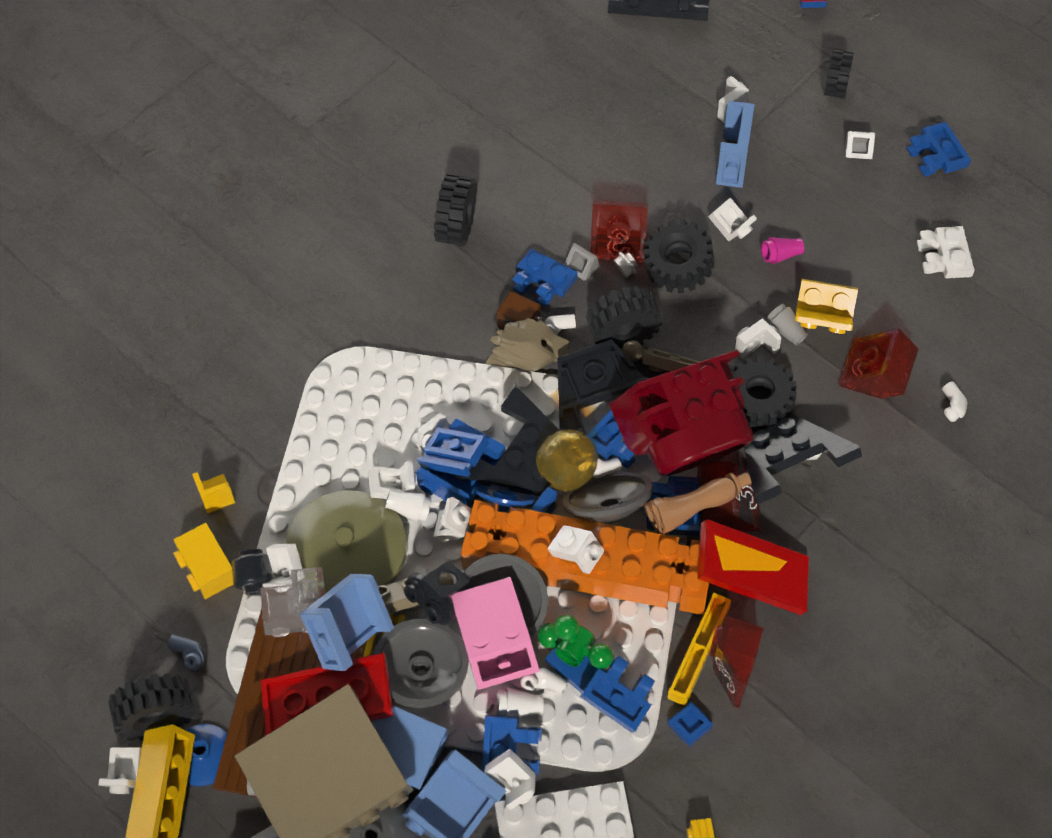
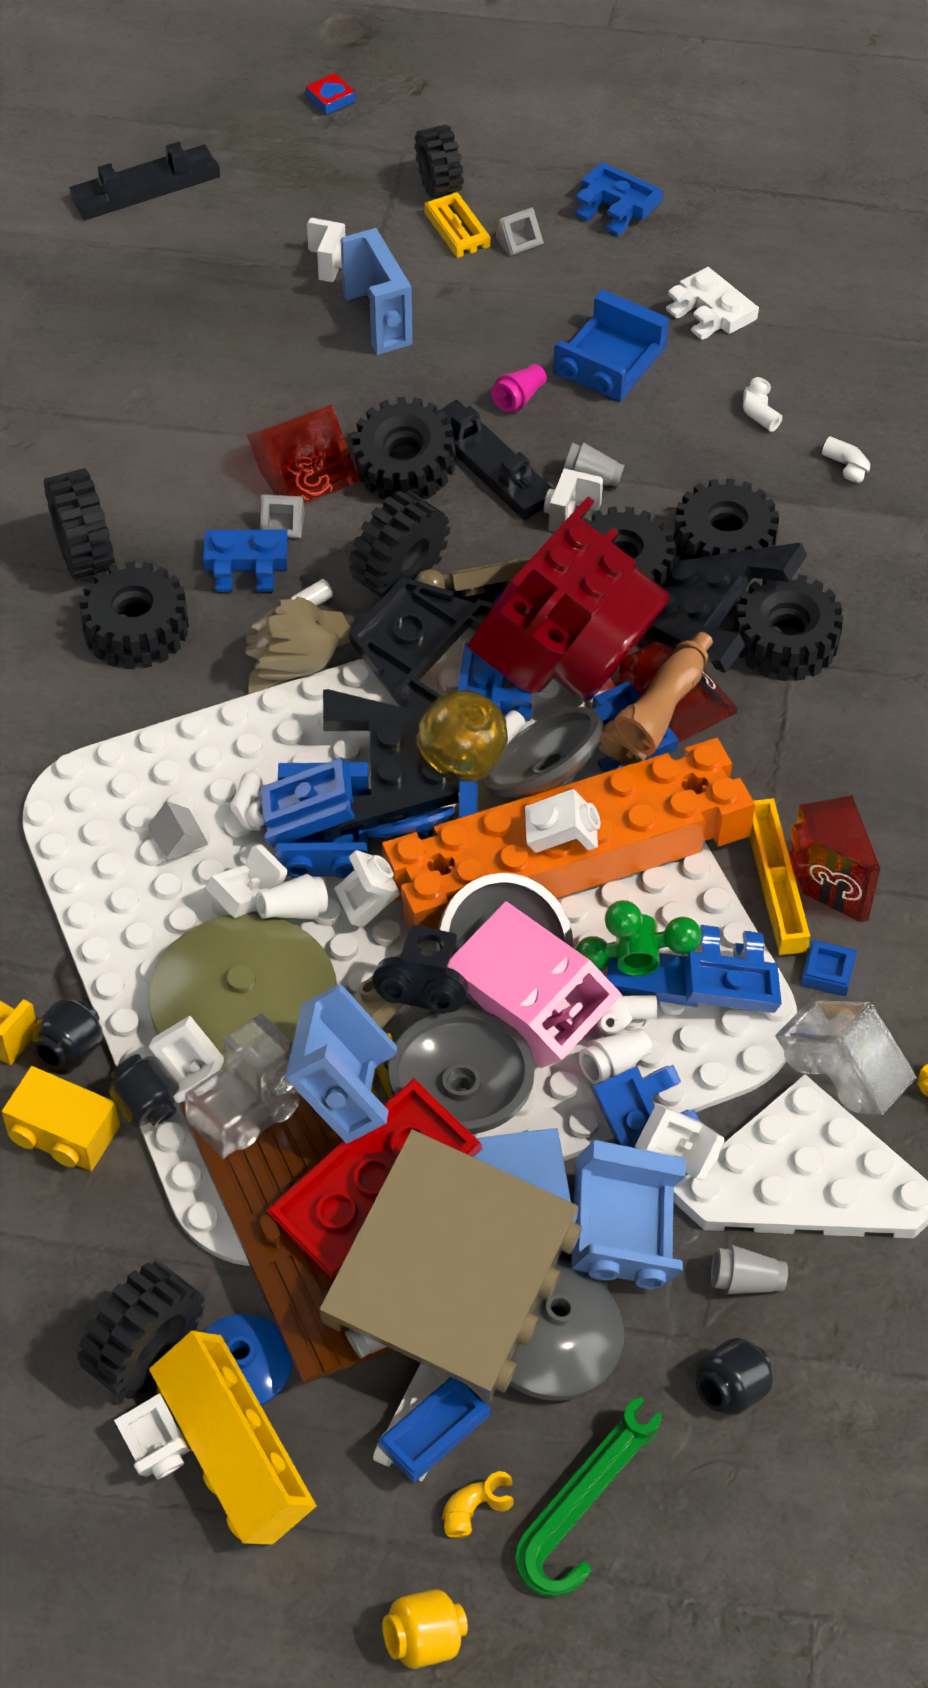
camera: 35 degrees left, 5 degrees down
(190, 649) = (125, 1242): sand blue arm -> none
(241, 514) = (67, 1034): none -> black head
(381, 427) = (176, 831): none -> light grey slope
(453, 297) = (134, 637): none -> black tyre
(516, 309) = (246, 606): reddish brown brick -> none
(626, 264) = (342, 491): white plate -> none
(653, 786) = (852, 1049): none -> clear brick
(731, 220) = (435, 383): white bracket -> none
(731, 287) = (495, 463): none -> black hinge
(753, 567) = (774, 744): red tile -> none
(825, 137) = (451, 226): none -> yellow tile
(826, 306) = (622, 418): yellow bracket -> none
(826, 474) = (795, 605): none -> black tyre
(845, 391) = (724, 504): none -> black tyre
(859, 251) = (613, 346): none -> blue panel
(879, 364) = (736, 447): clear red slope -> none
(923, 336) = (756, 404): none -> white arm

